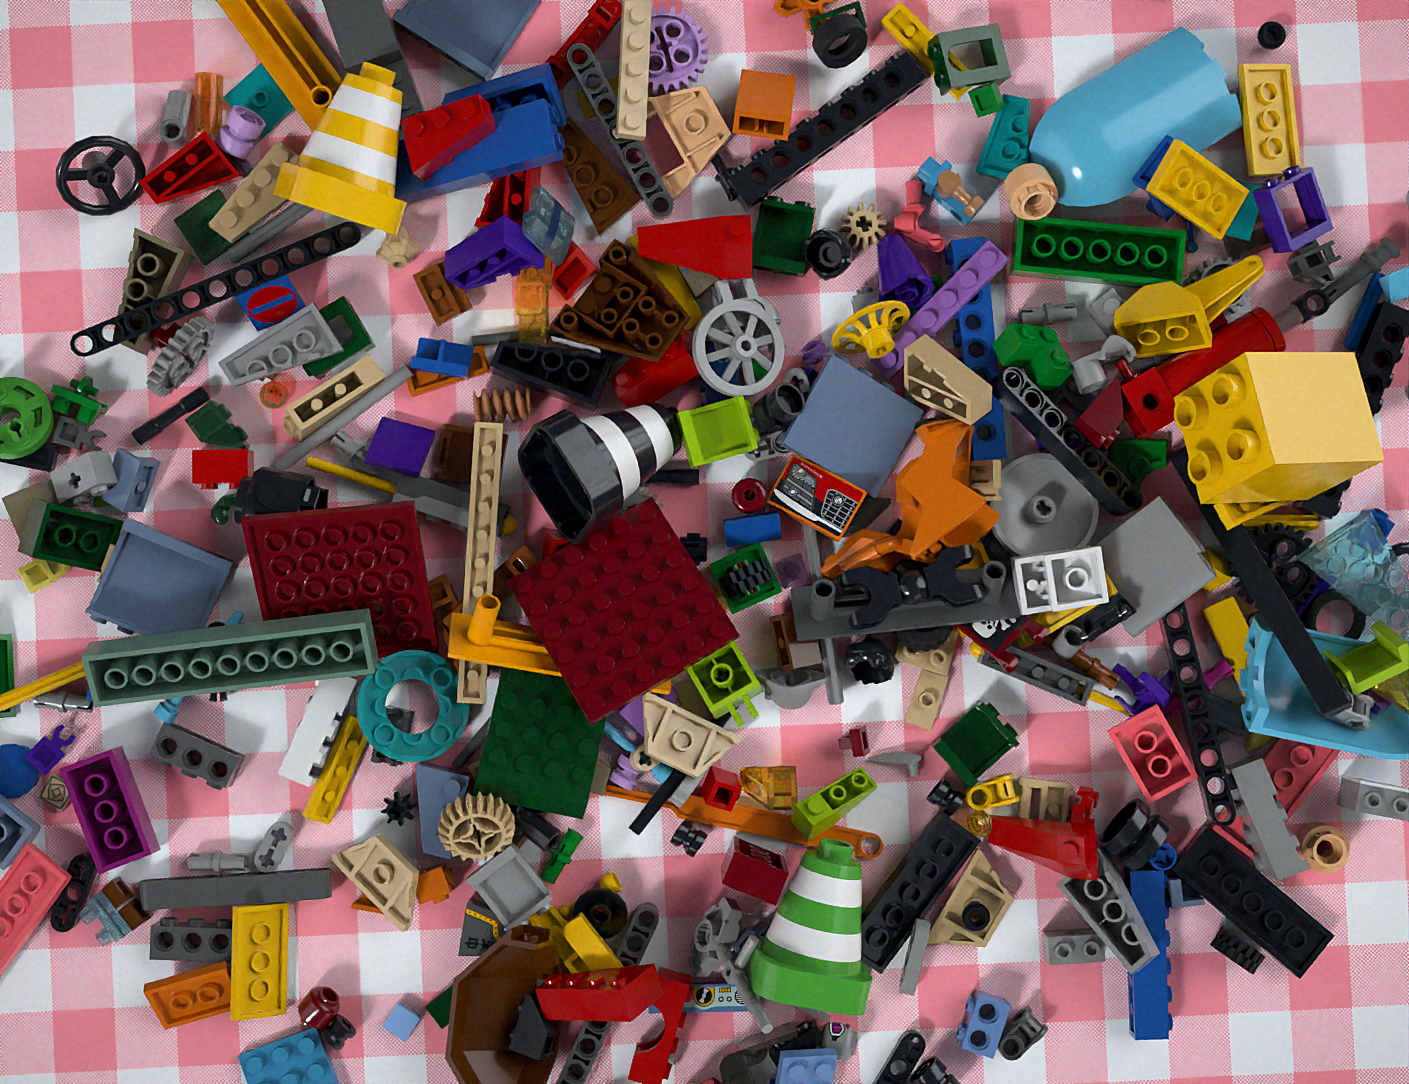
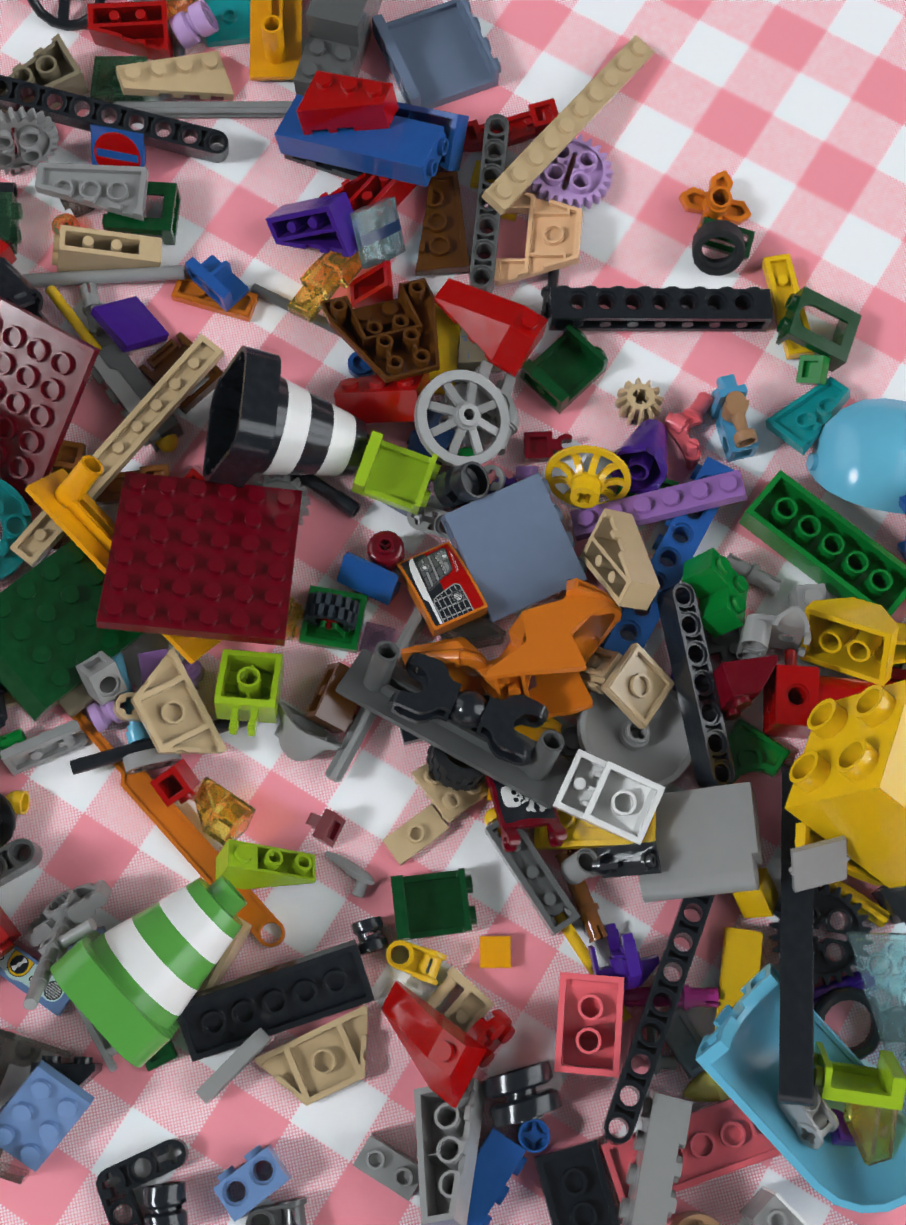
camera: 30 degrees right, 15 degrees down
(352, 154) = (259, 74): yellow cone -> none
(398, 249) = (247, 179): tan rock -> none
(440, 295) = (254, 237): dark orange plate -> none
(502, 405) = (231, 341): nougat piece -> none
(561, 373) = (304, 352): black wedge -> none
(573, 345) = (331, 339): white sticker -> none
(599, 830) = (43, 747): none -> light grey hinge
(610, 753) = (94, 671): none -> light grey brick
(689, 839) = (115, 812): black wheel -> none
(696, 547) = (307, 564): black gear -> none
(754, 870) = (141, 864): dark red brick -> none
(764, 104) = (621, 254): orange brick -> none
(810, 319) = (541, 447): none -> dark red plate
(828, 253) = (593, 401): black hair -> none
(840, 1037) = (110, 1097): light grey head -> none
(869, 661) = (387, 761): black hair -> none
(979, 823) = (384, 981): clear yellow plate -> none
(982, 922) = (309, 1074): black plate -> none
(1023, 474) = (638, 686): none -> tan plate
(1030, 191) = (800, 470): light nougat piece -> none
(1044, 744) = (495, 951): none -> light orange tile
(1180, 894) = (528, 1190): sand blue panel -> none
(1249, 525) = (819, 863): none -> light grey piece

